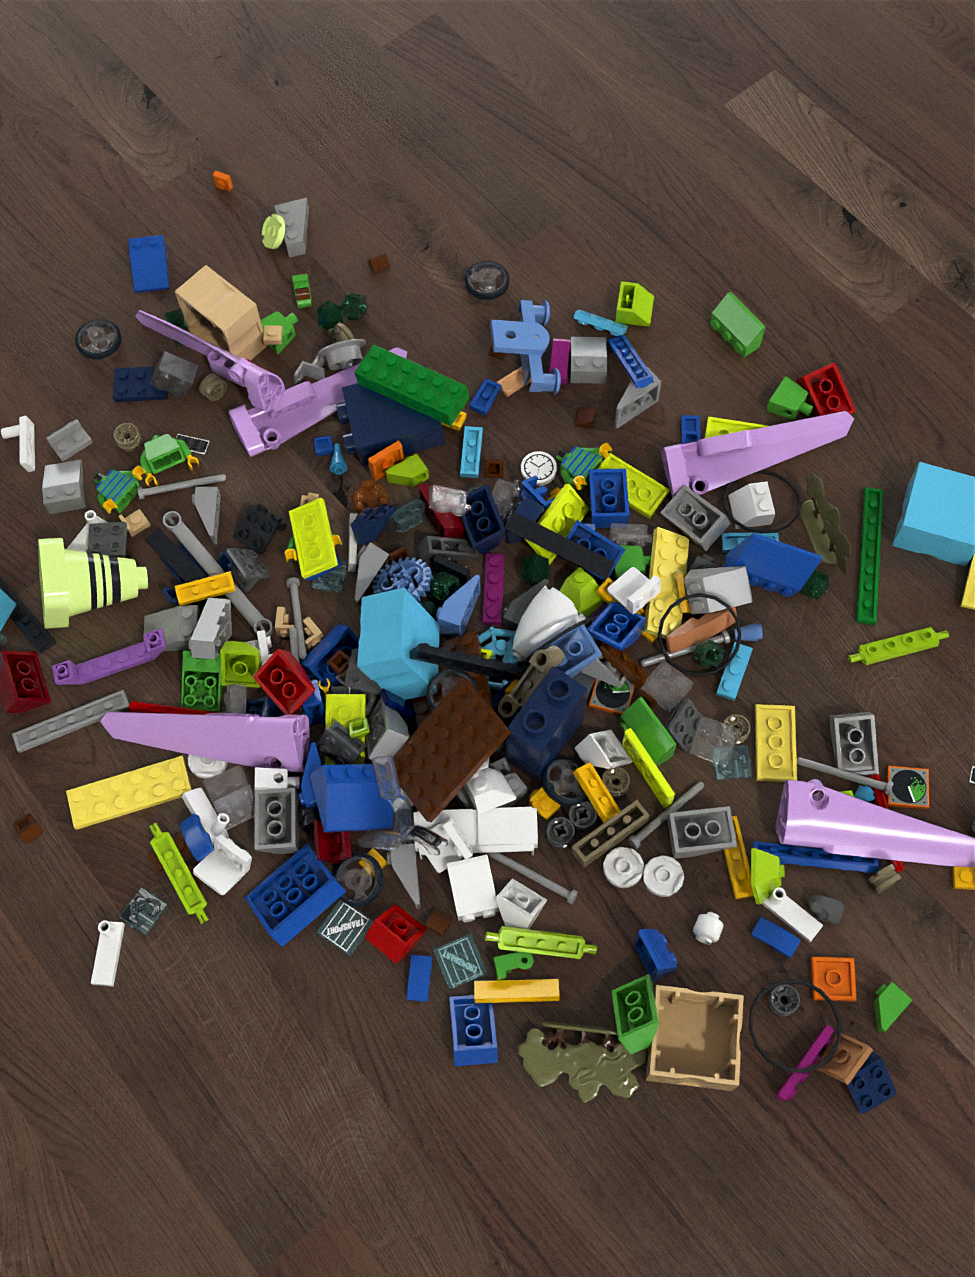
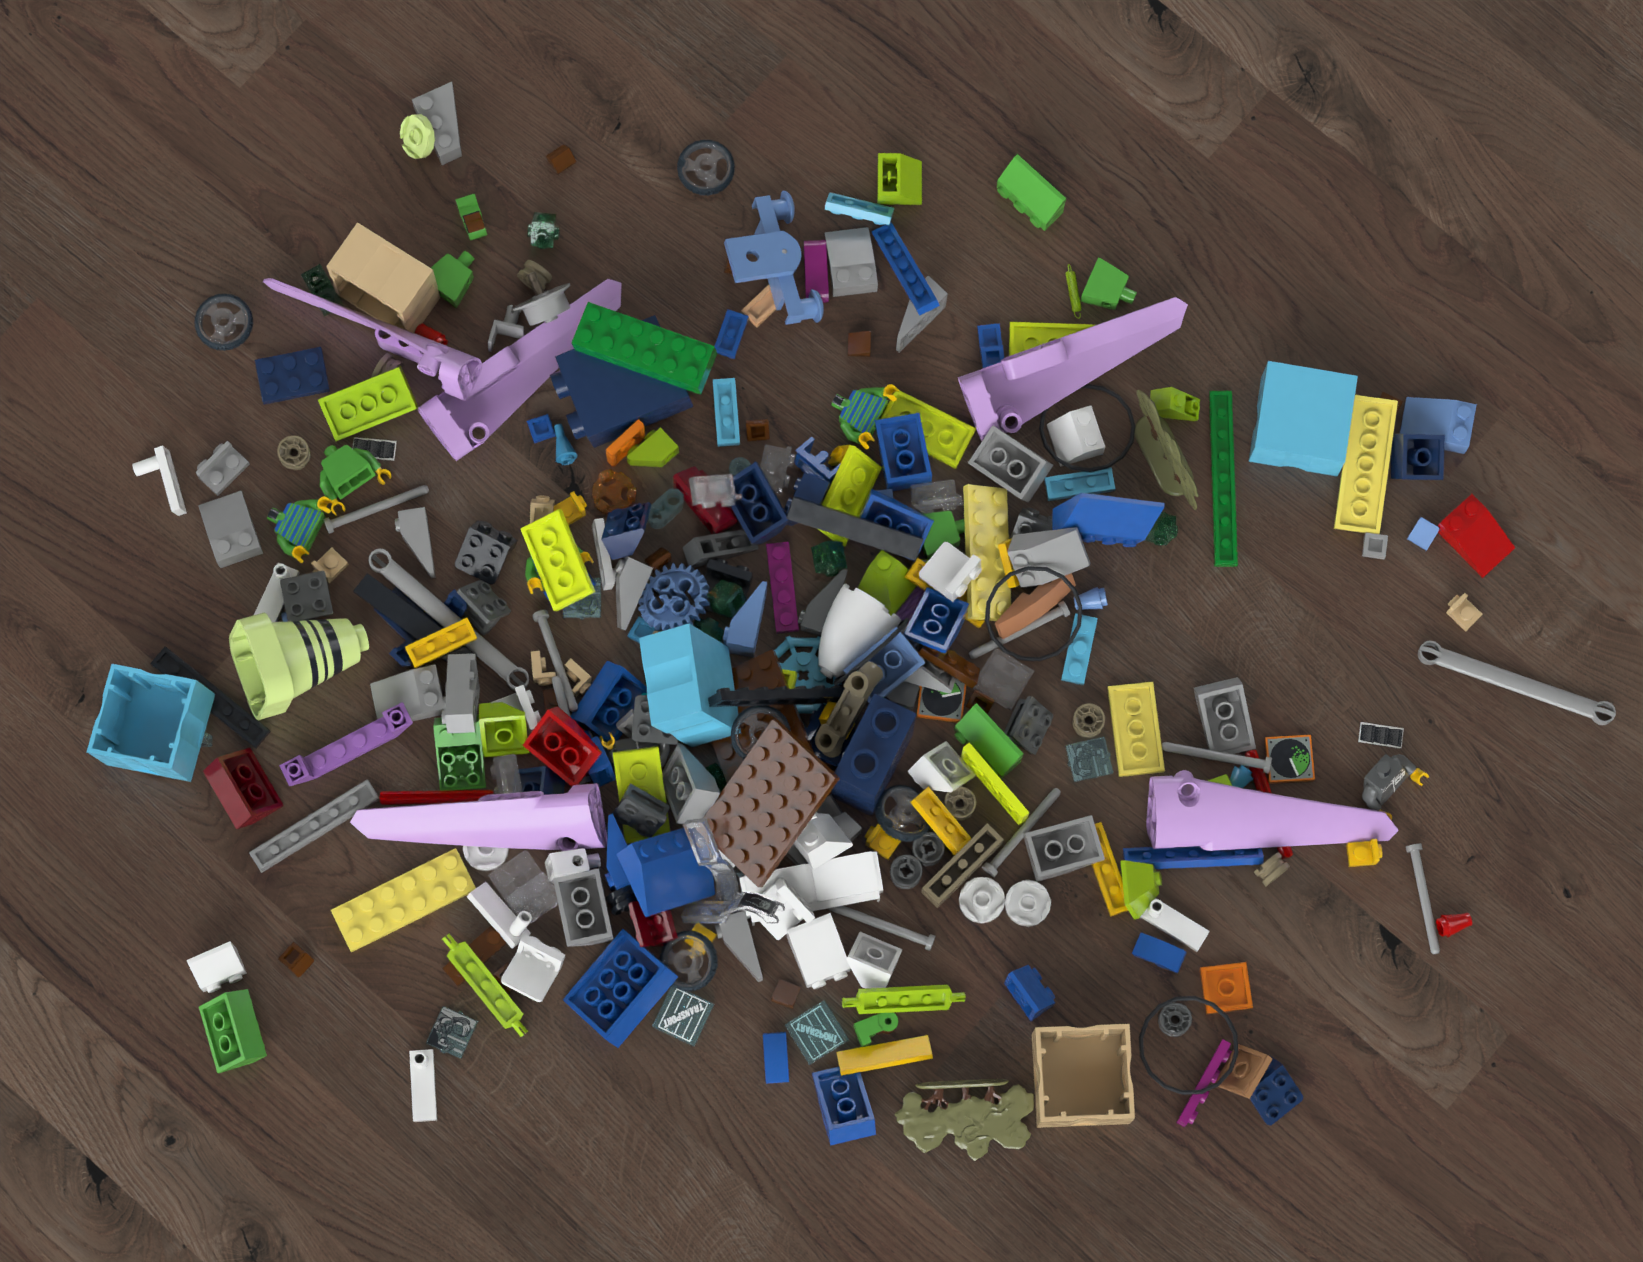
camera: 15 degrees left, 10 degrees up
(149, 263) = (263, 204): blue slope -> none
(173, 374) = (337, 365): flat silver brick -> none
(191, 406) = (368, 403): none -> lime plate
(195, 838) = (497, 944): blue slope -> none
(222, 181) = (331, 65): orange plate -> none
(273, 334) = (450, 289): tan plate -> none
(329, 315) = (515, 248): clear green brick -> none
(335, 506) = (572, 508): none -> yellow bracket
(338, 662) = (619, 711): reddish brown slope -> none
(359, 728) = (658, 787): lime slope -> none
(395, 933) = (740, 1013): red slope -> none
(397, 703) = (697, 752): clear blue tile -> none
(541, 465) = (813, 420): white tile -> none
(636, 1014) = (1017, 1060): bright green slope -> none
(708, 928) = (1084, 954): white head -> none
(714, 741) = (1066, 739): clear plate -> none
(715, 654) = (1051, 640): clear green brick -> none
(761, 401) = (1073, 291): none -> lime piece
(826, 391) = (1151, 269): red slope -> none
(826, 908) = (1211, 912): dark grey rock -> none
(838, 492) = (1175, 404): none -> lime slope
(889, 1005) = (1288, 1007): bright green slope -> none
(898, 646) = (1265, 590): lime plate -> none

